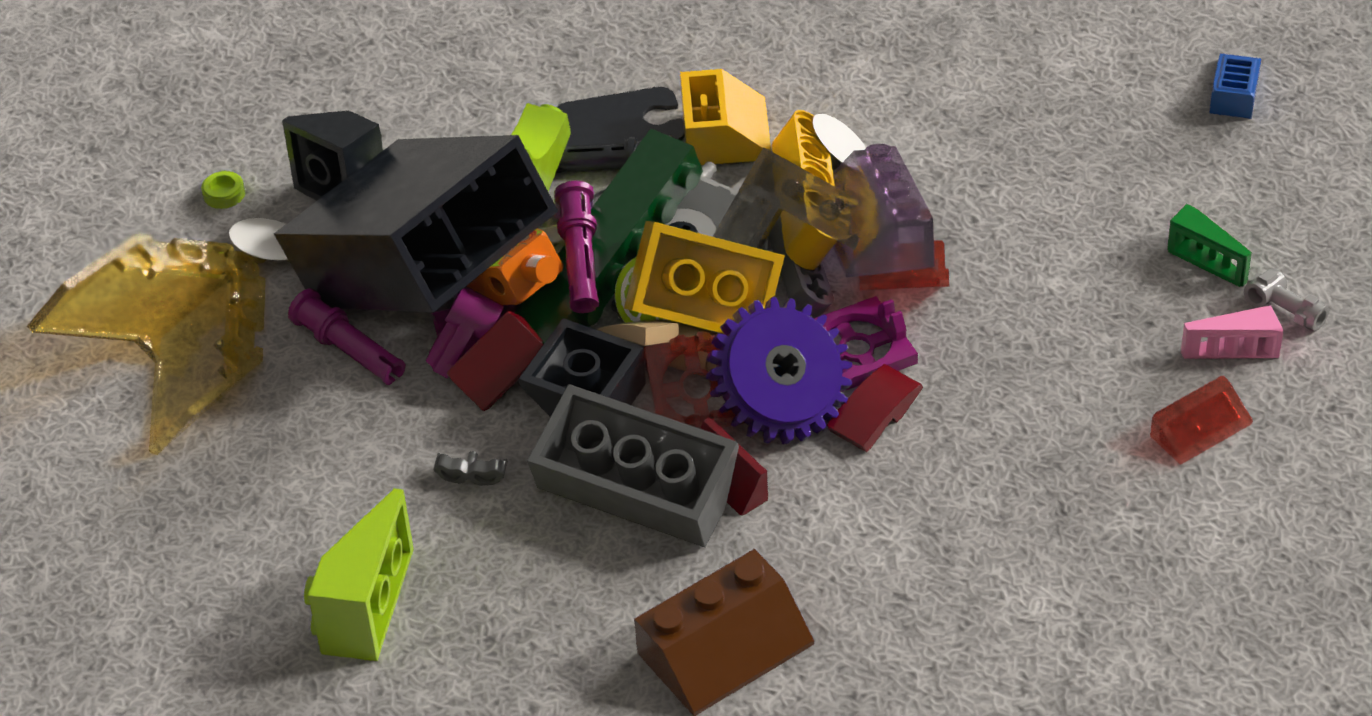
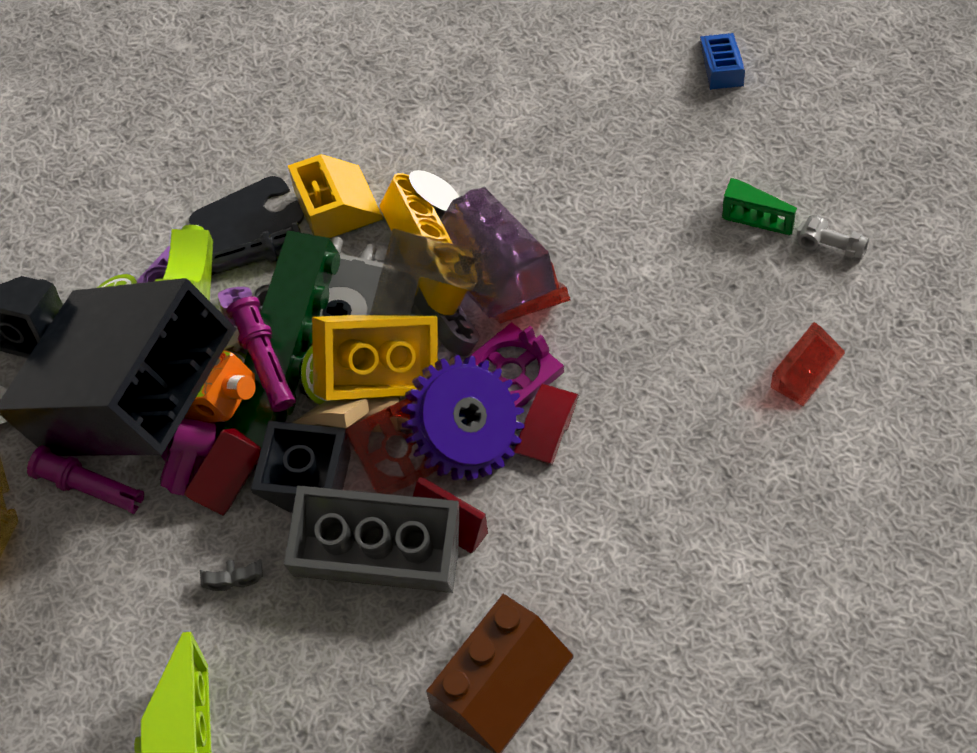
camera: 15 degrees left, 10 degrees up
(1245, 334) = (812, 280): bright pink slope -> none

